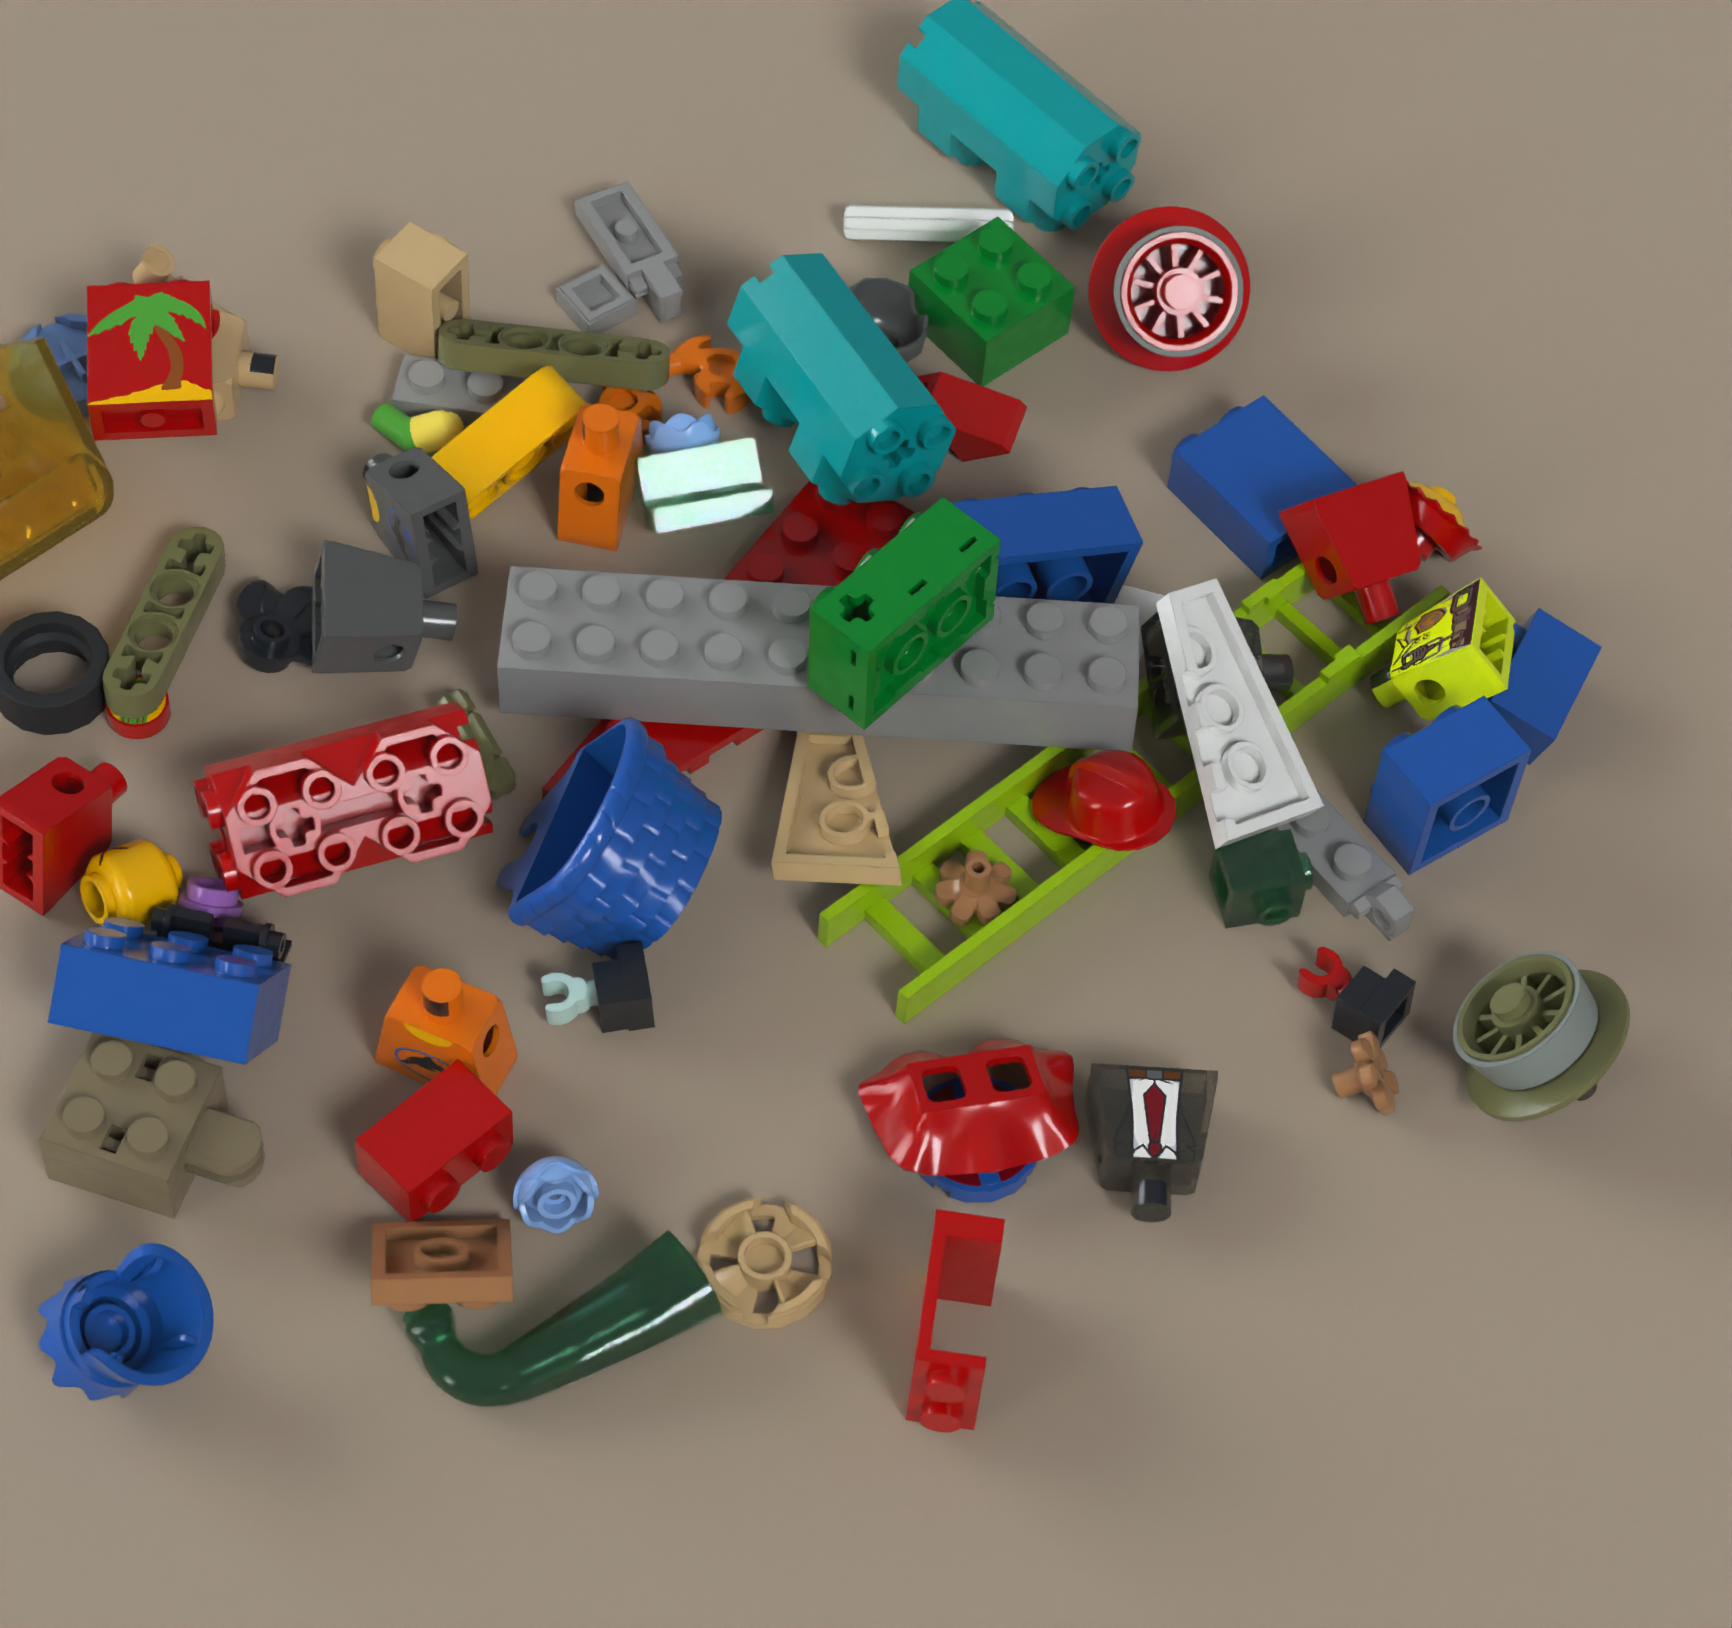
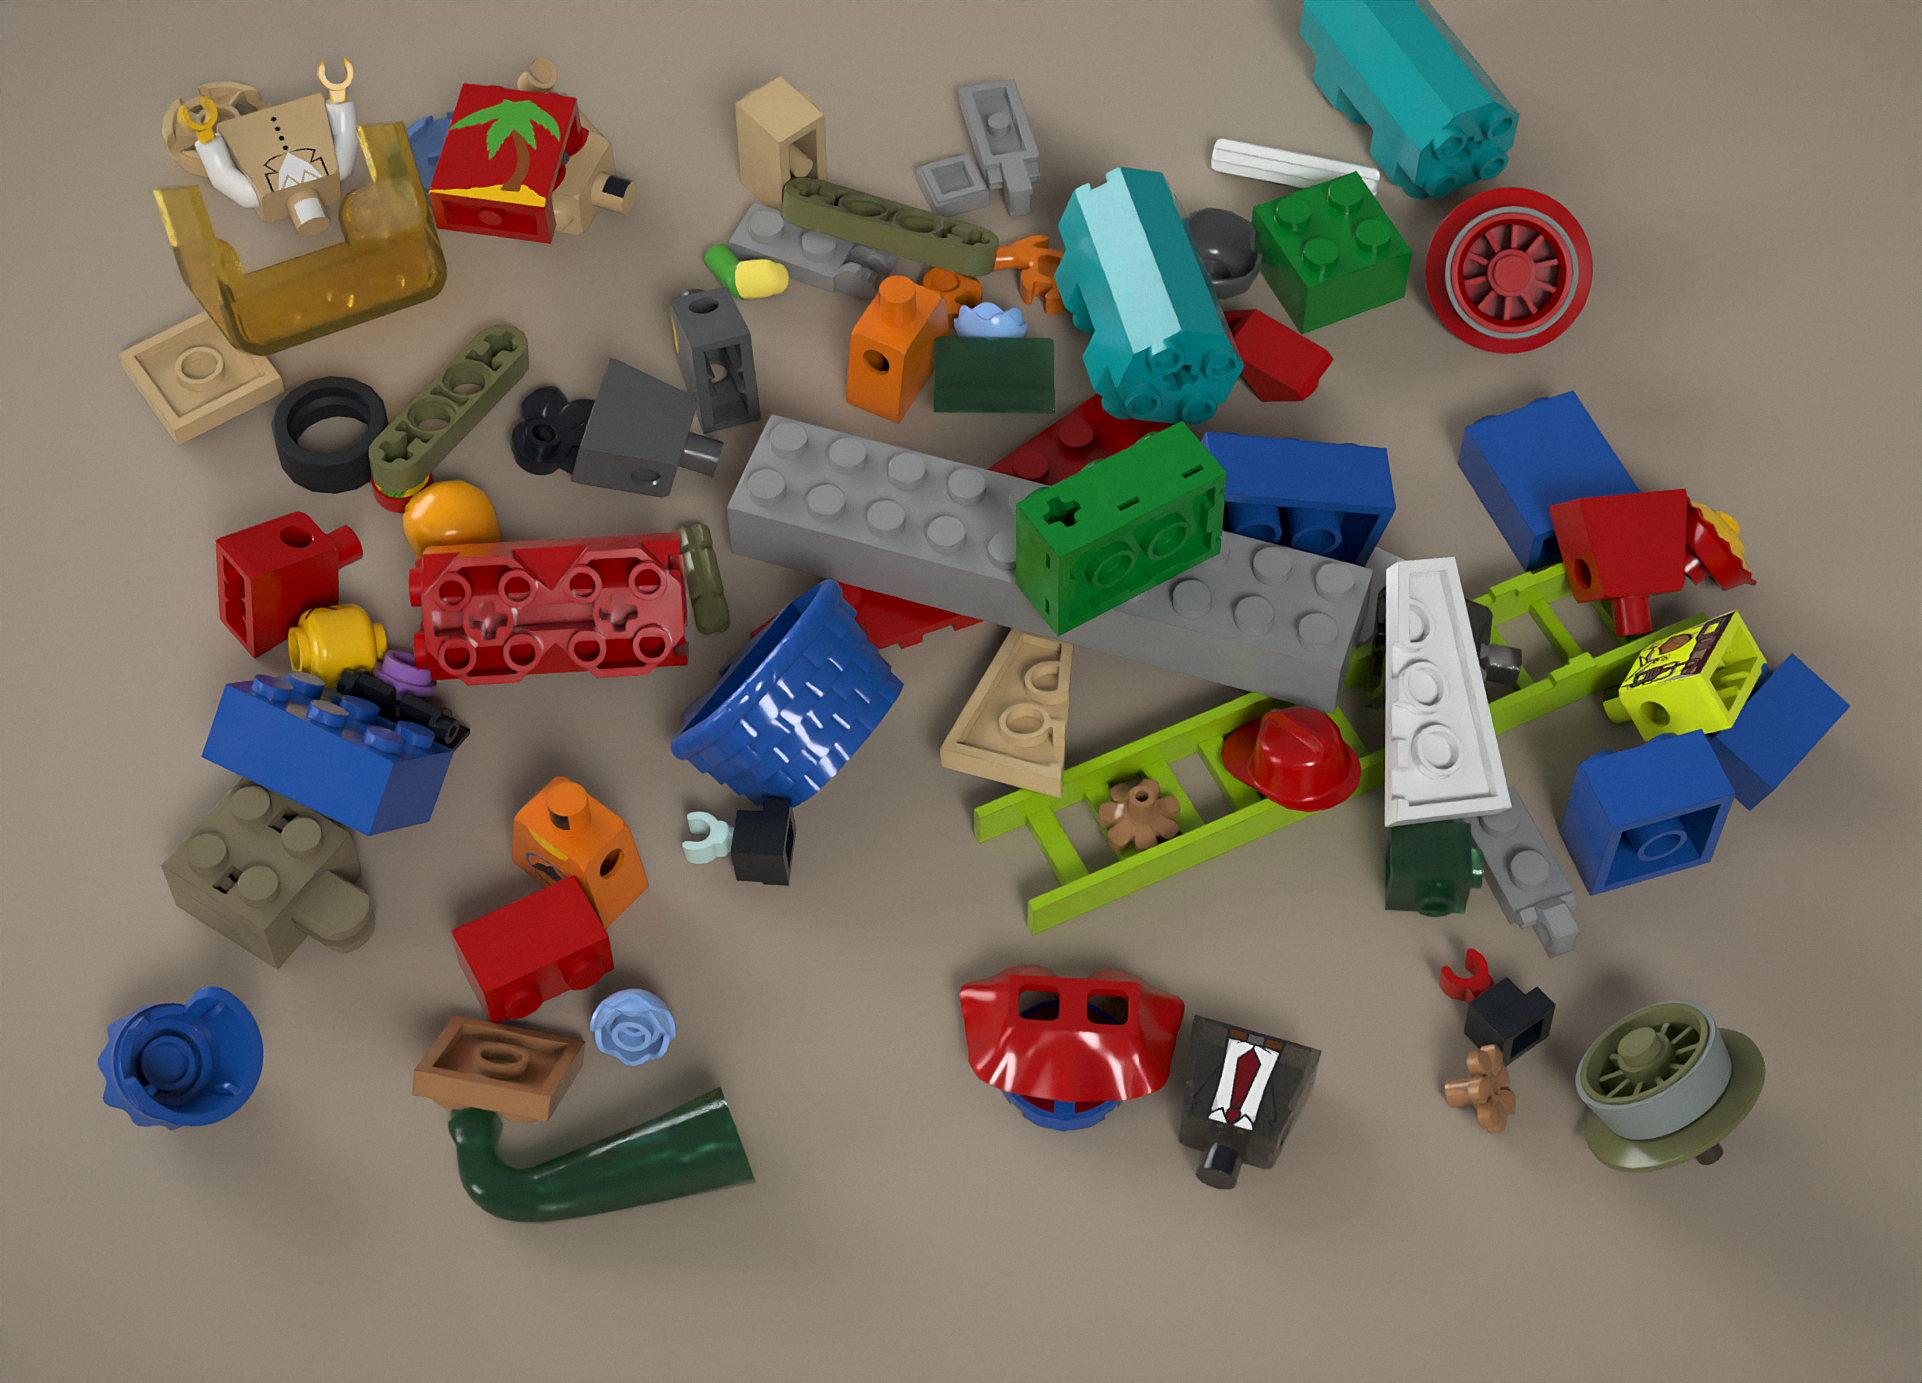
camera: 20 degrees right, 0 degrees up
(199, 734) = (450, 515): none -> light orange hair
(511, 438) = (815, 300): yellow beam -> none
(765, 1262) = (817, 1141): tan piece -> none
(963, 1270) = (995, 1181): red panel -> none

